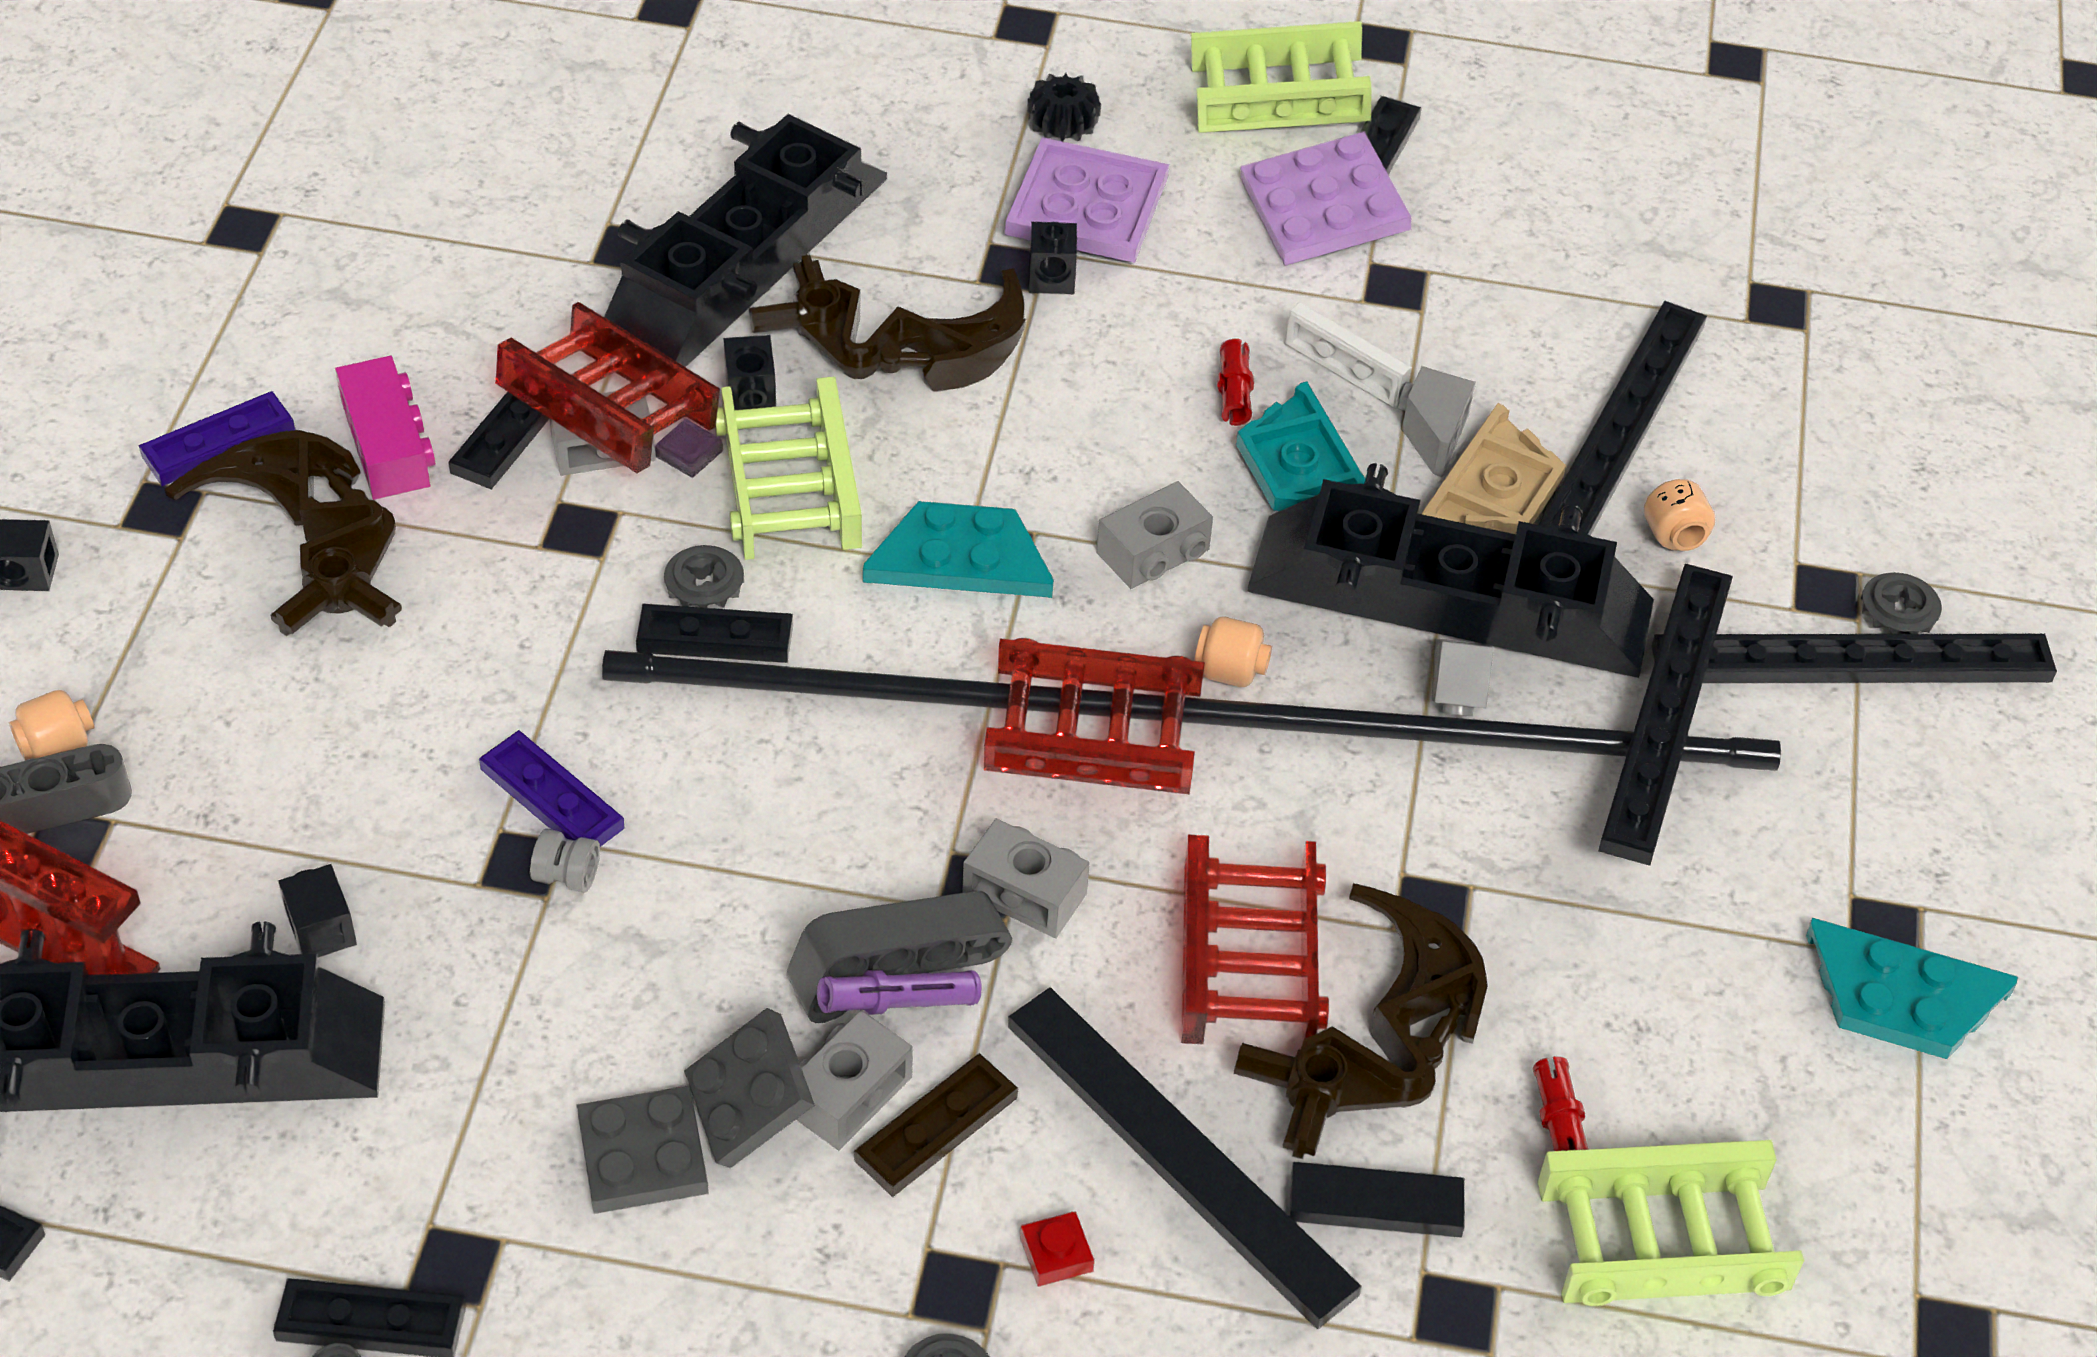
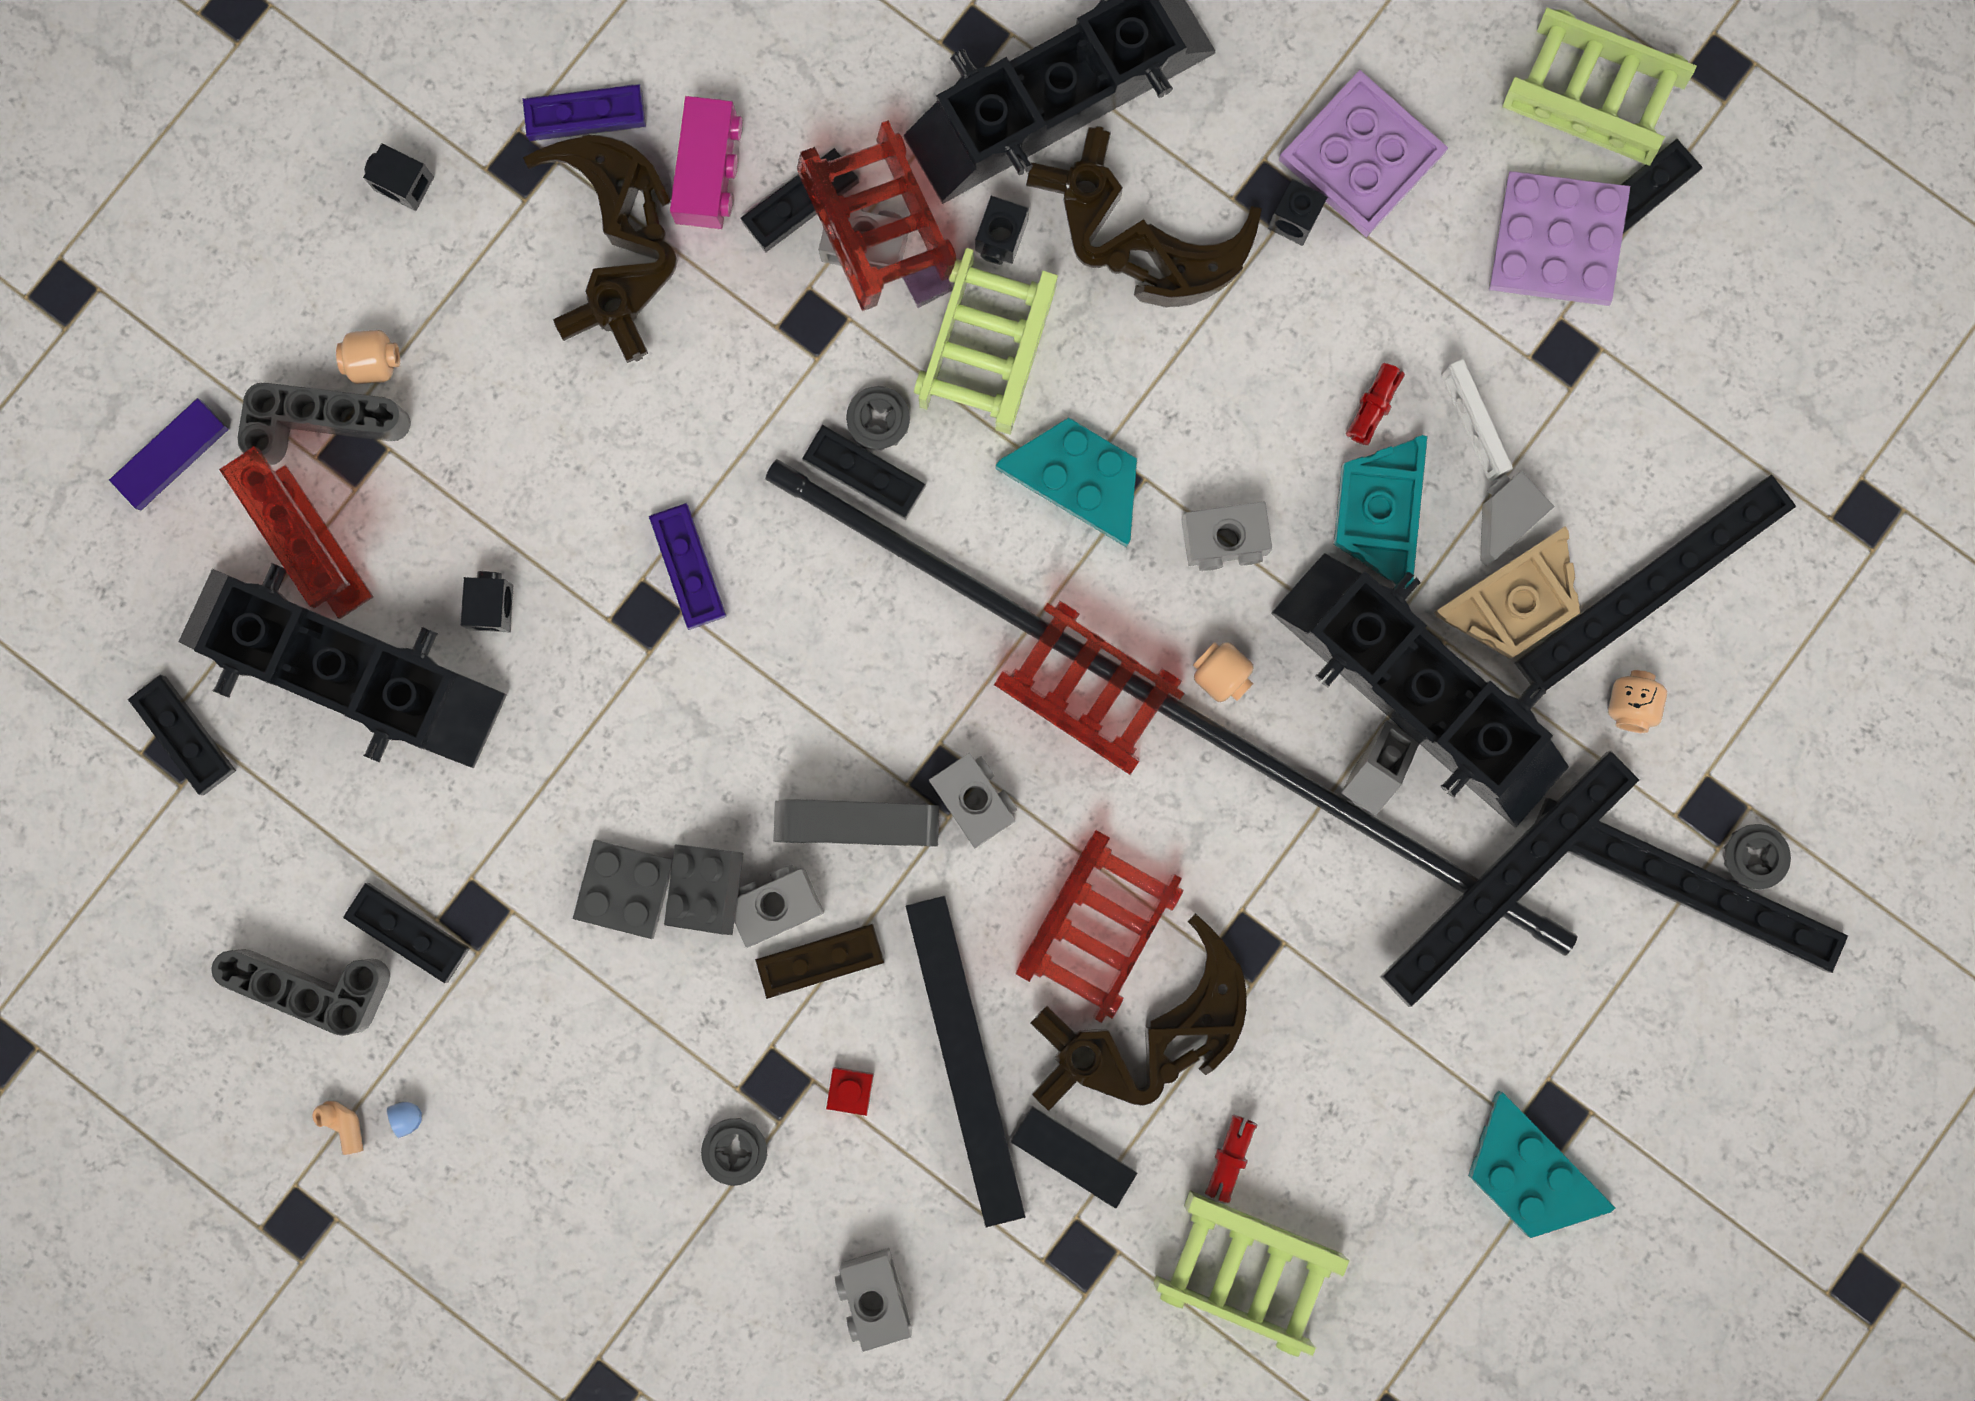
camera: 30 degrees right, 35 degrees up
(565, 860) = (667, 637): light grey wheel -> none
(897, 991) = (826, 860): medium lavender pin -> none
(1064, 107) = (1398, 39): black gear -> none

